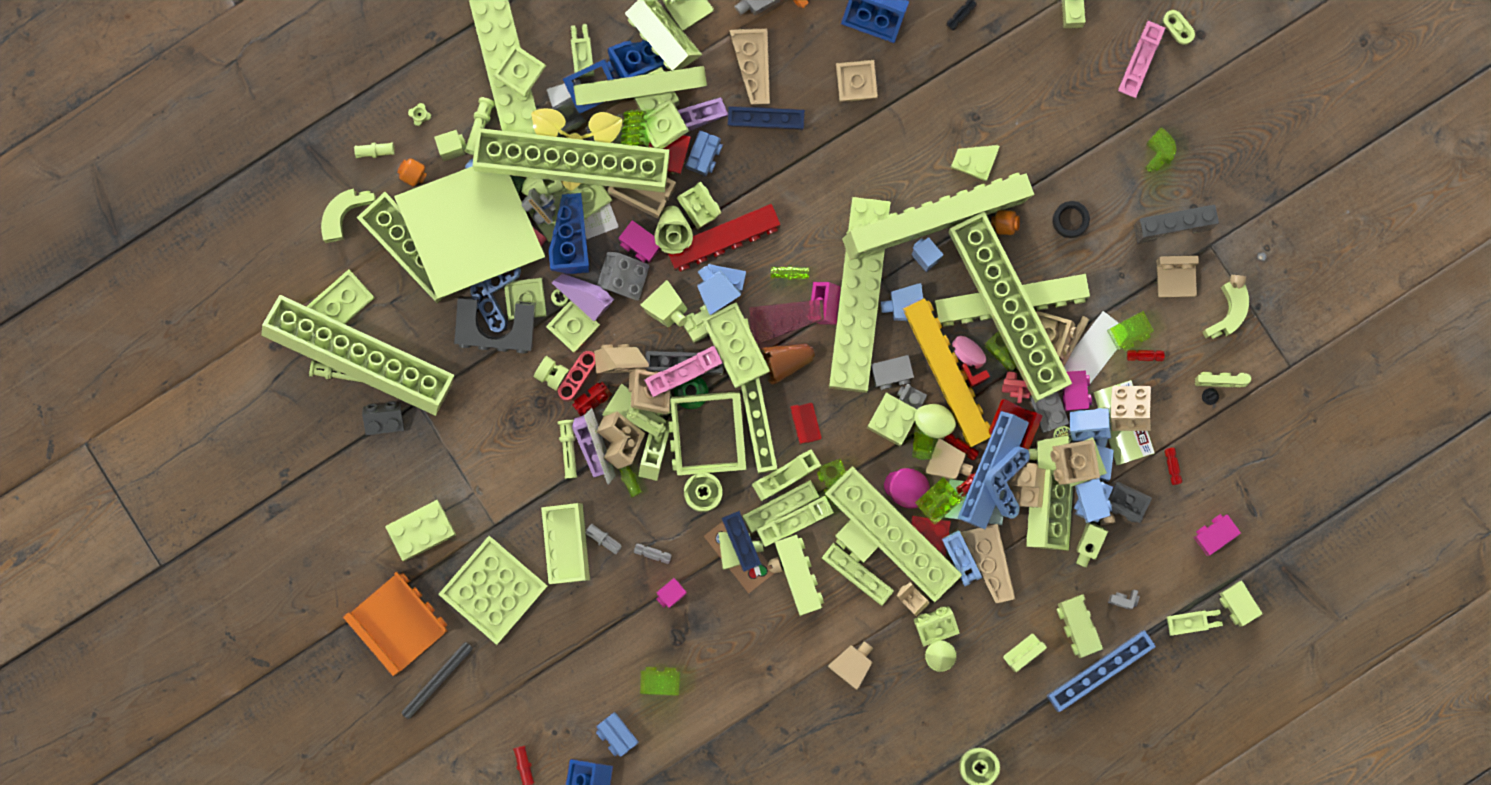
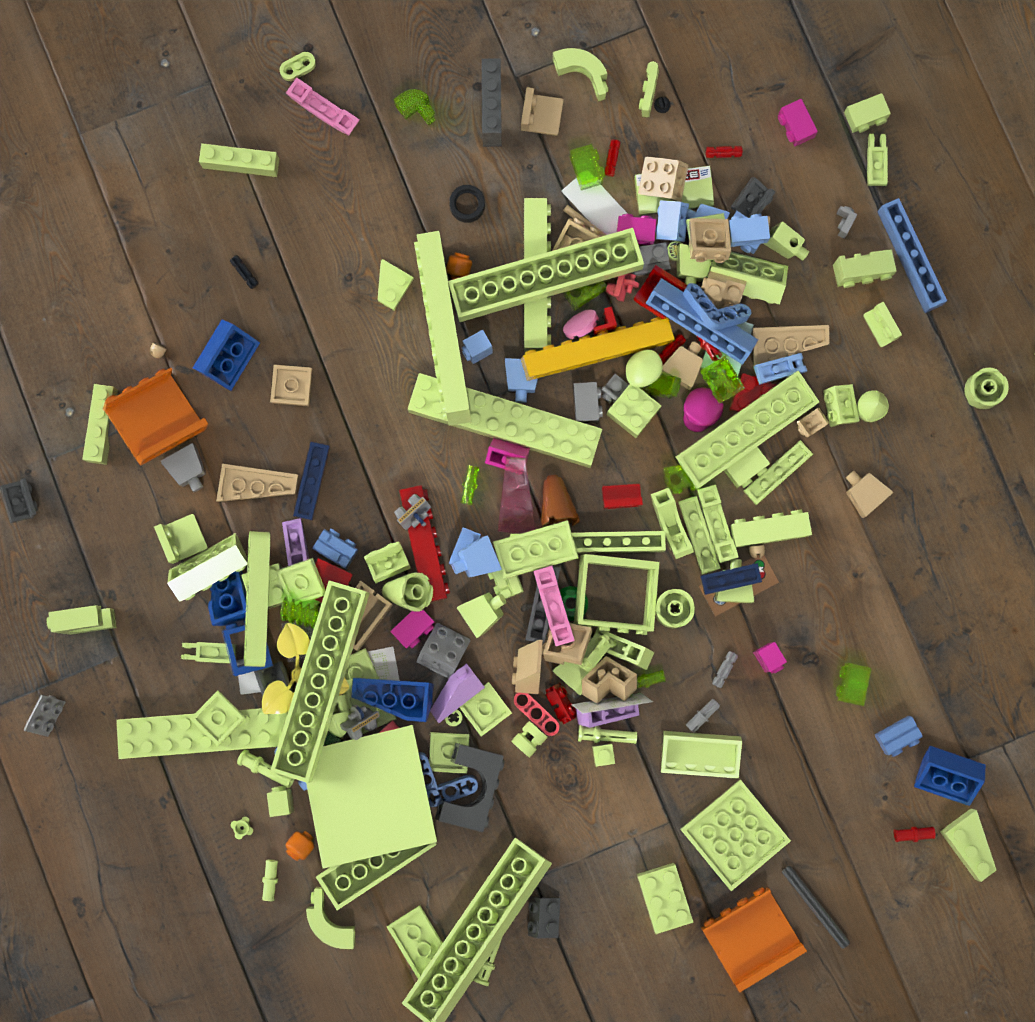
camera: 75 degrees left, 0 degrees up
(548, 448) = (603, 755): none -> yellowish green brick
(749, 222) = (415, 514): none -> light grey hips
(1237, 281) = (556, 54): tan hinge -> none

